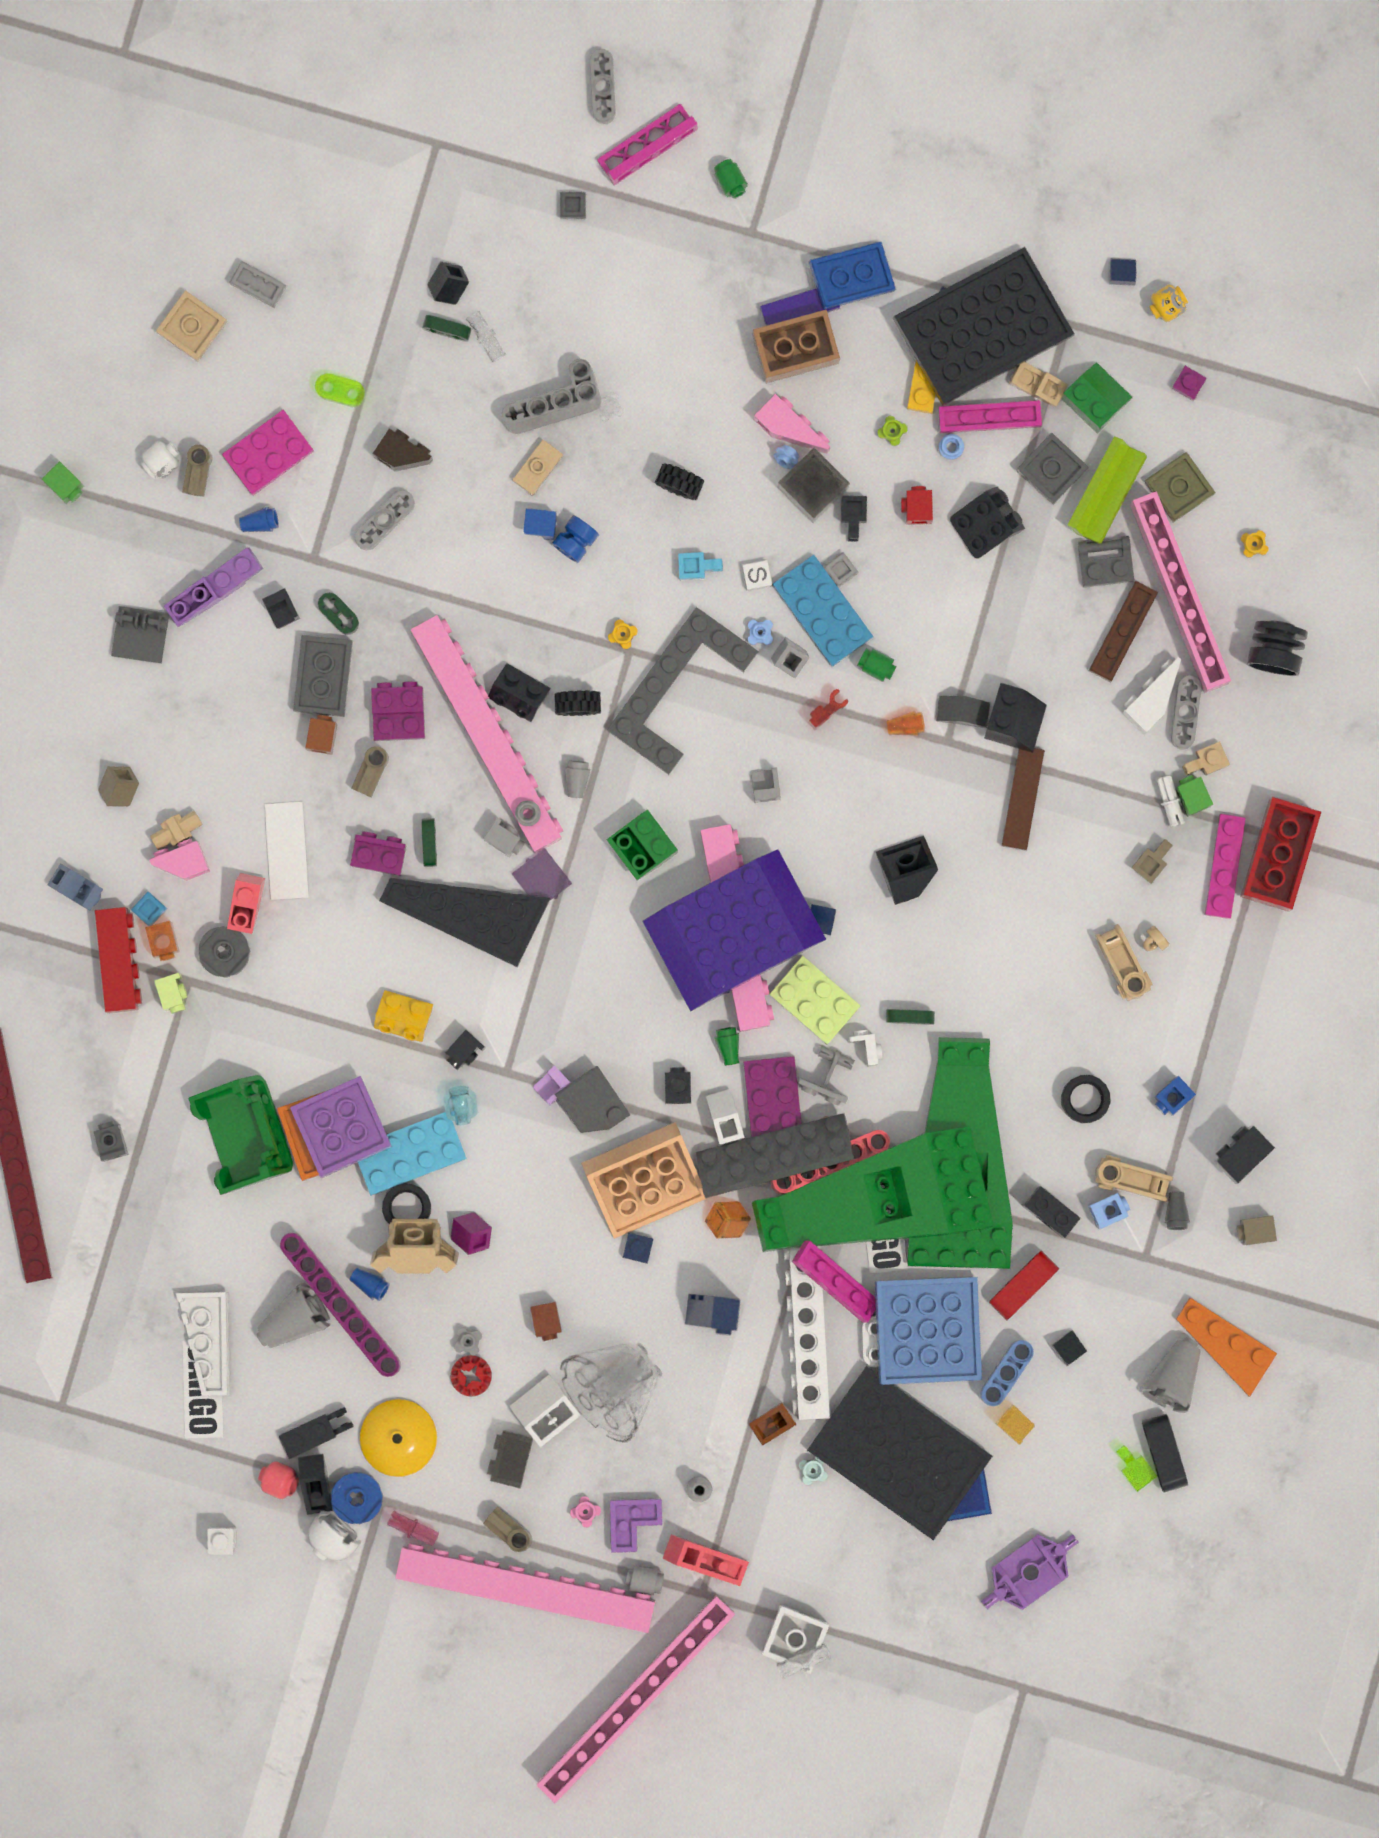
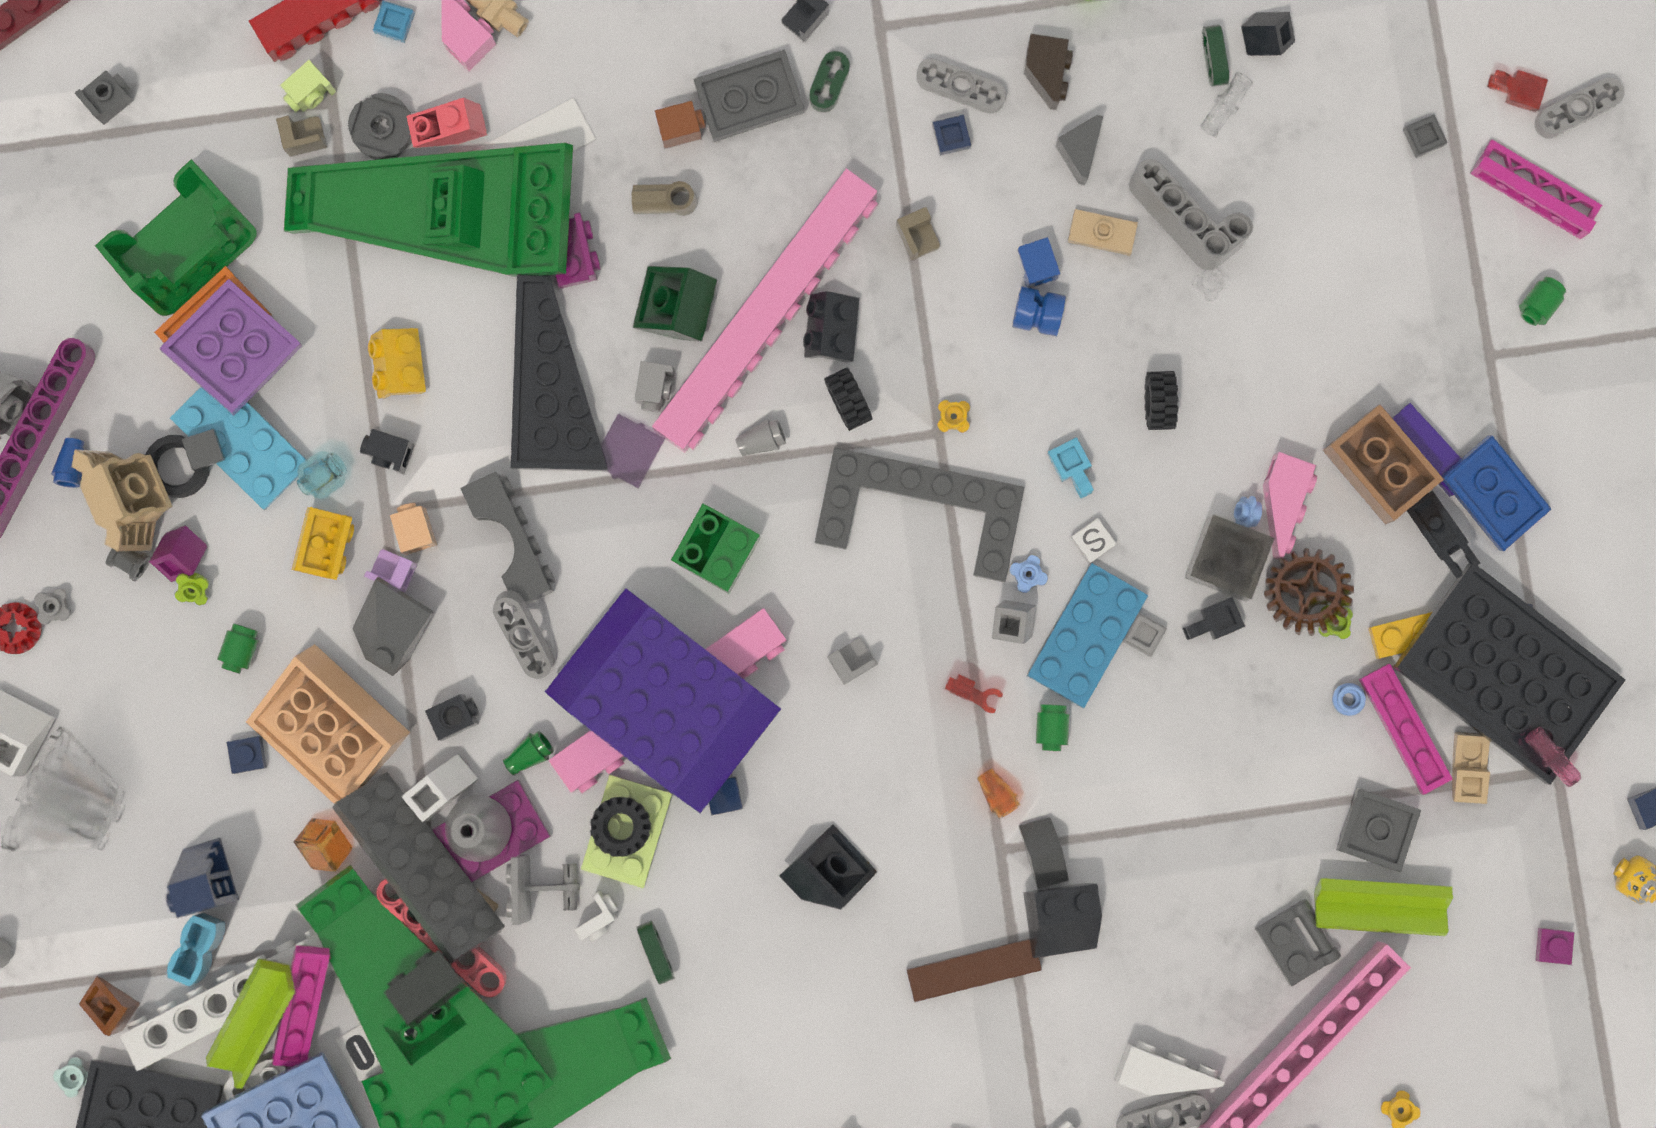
camera: 65 degrees right, 0 degrees up
(157, 930) = (362, 37): clear orange brick -> none
(203, 1011) = (301, 135): none -> dark tan panel
(327, 889) = (465, 208): none -> green wing
(398, 712) = (746, 199): magenta plate -> none
(406, 1179) = (203, 449): none -> dark grey tile
(418, 543) = (951, 135): none -> dark blue plate
(429, 842) = (611, 302): dark green beam -> none
(450, 796) = (675, 302): none -> dark green slope
(460, 1272) = (129, 562): none -> dark grey bush
(470, 456) = (1078, 147): none -> dark grey slope
(479, 600) = (917, 233): none -> dark tan panel
(497, 1228) = (195, 582): none -> lime plate
(511, 1125) = (323, 543): none -> yellow bracket
(527, 805) = (684, 390): light grey plate -> none
(529, 1056) = (413, 528): none -> light nougat brick
(535, 991) = (491, 501): none -> dark grey arch
(546, 1321) = (113, 686): copper brick -> none
(559, 1219) = (238, 648): none -> green brick
(570, 120) = (1522, 89): none -> clear red plate
(633, 1003) = (524, 620): none -> light grey beam
(760, 1114) = (490, 828): none -> light grey cone
(766, 1345) = (197, 941): none -> medium azure brick
(819, 987) = (600, 831): none -> black tyre
(831, 1318) = (252, 1020): none -> lime panel
(856, 447) = (1320, 596): none -> reddish brown gear
(862, 327) = (1441, 531): none -> black hinge
(863, 1182) = (424, 988): none -> pearl dark grey brick
(917, 506) = (1261, 691): red brick -> none
(986, 522) = (1279, 781): black bracket -> none
(1055, 323) = (1553, 756): none -> clear pink axle
(1096, 397) = (1486, 843): green slope -> none
(1123, 631) = (1224, 1000): reddish brown tile -> none
(1180, 487) = (1427, 991): olive tile -> none

